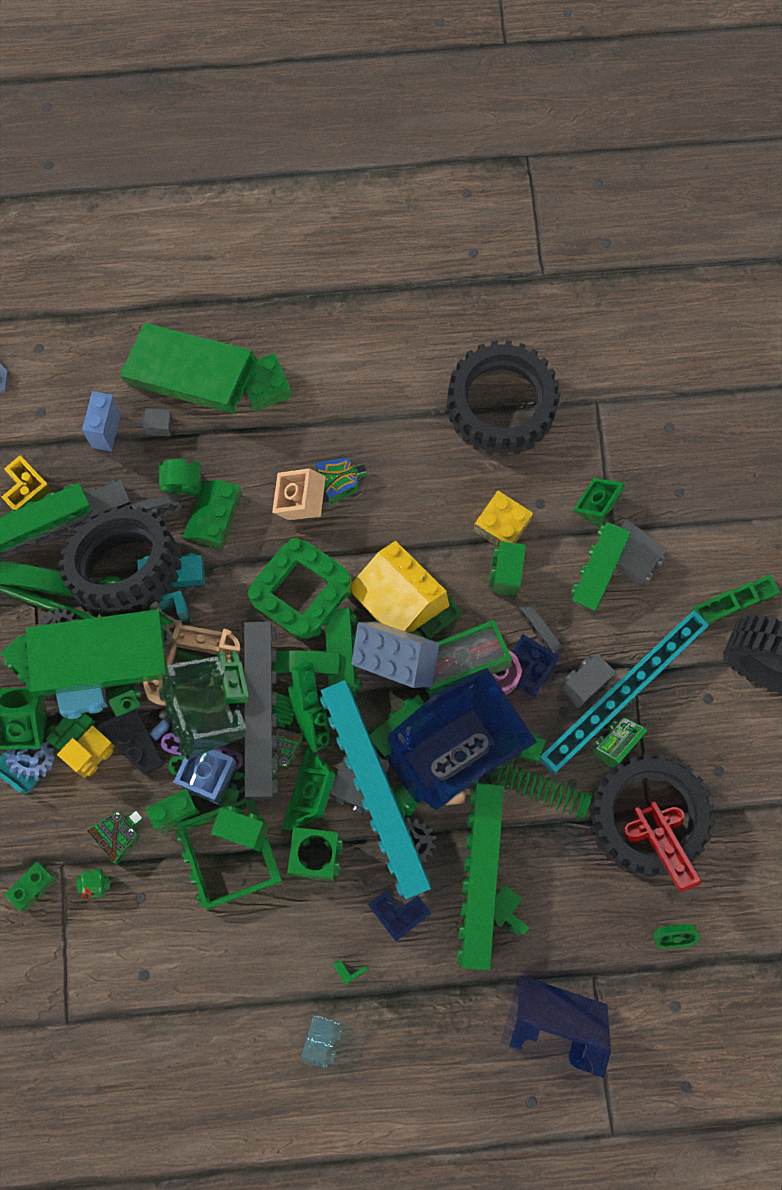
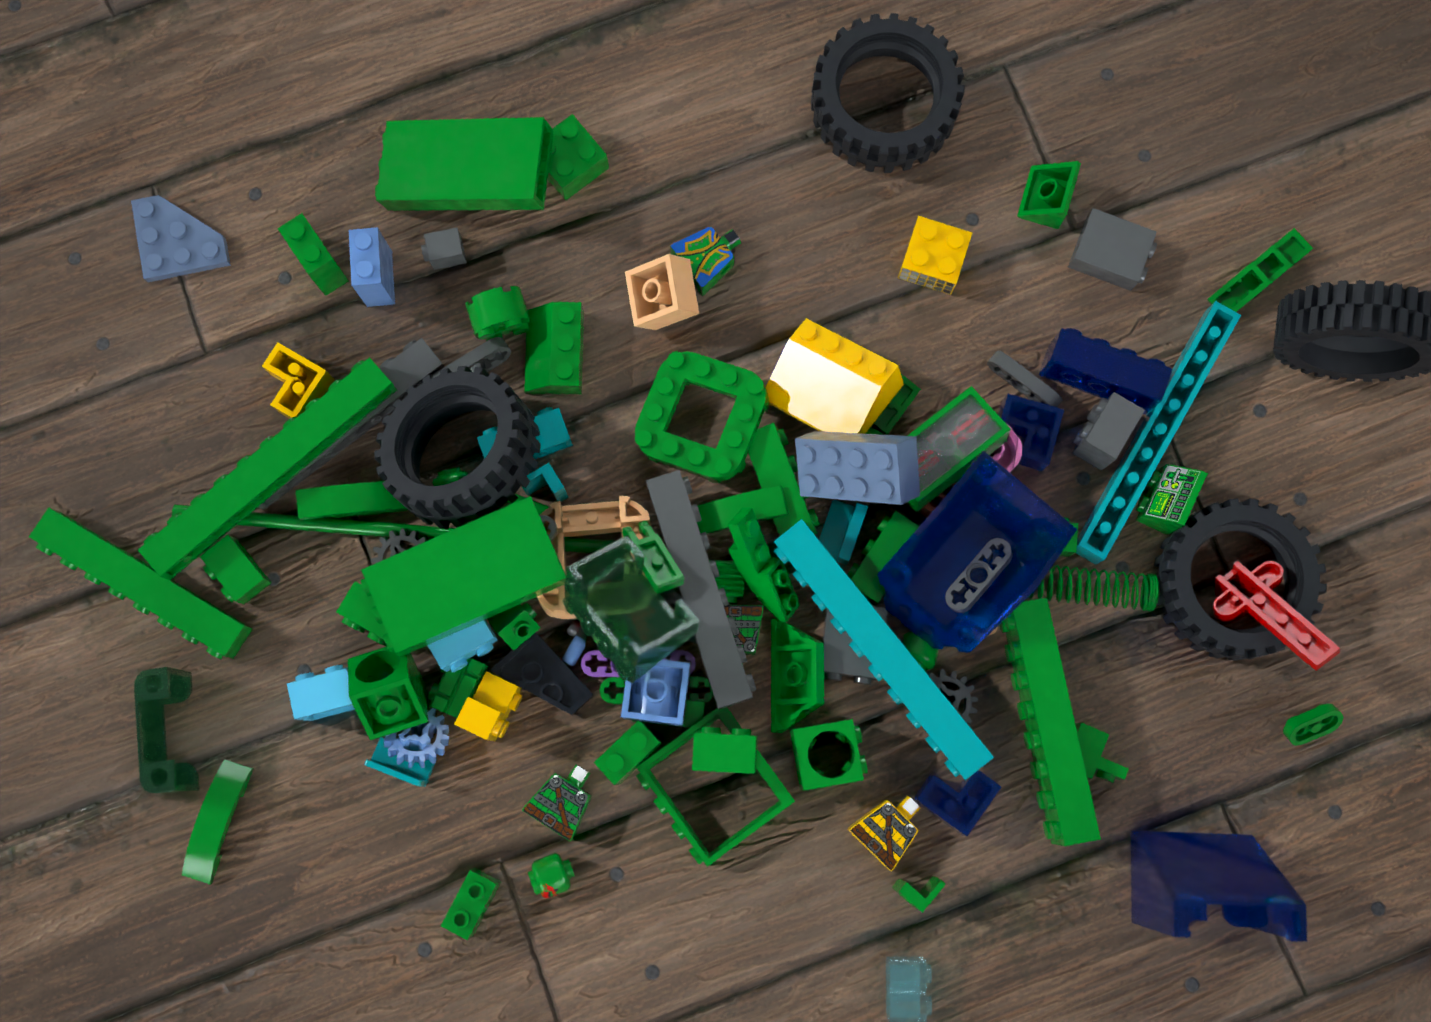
camera: 15 degrees left, 5 degrees up
(64, 401) = (313, 254): none -> green brick
(342, 922) = (887, 830): none -> torso
(376, 699) = (842, 529): none -> teal panel
(508, 568) = (961, 314): green brick -> none
(598, 636) = (1103, 369): none -> clear blue brick
(601, 565) = (1081, 275): green brick -> none

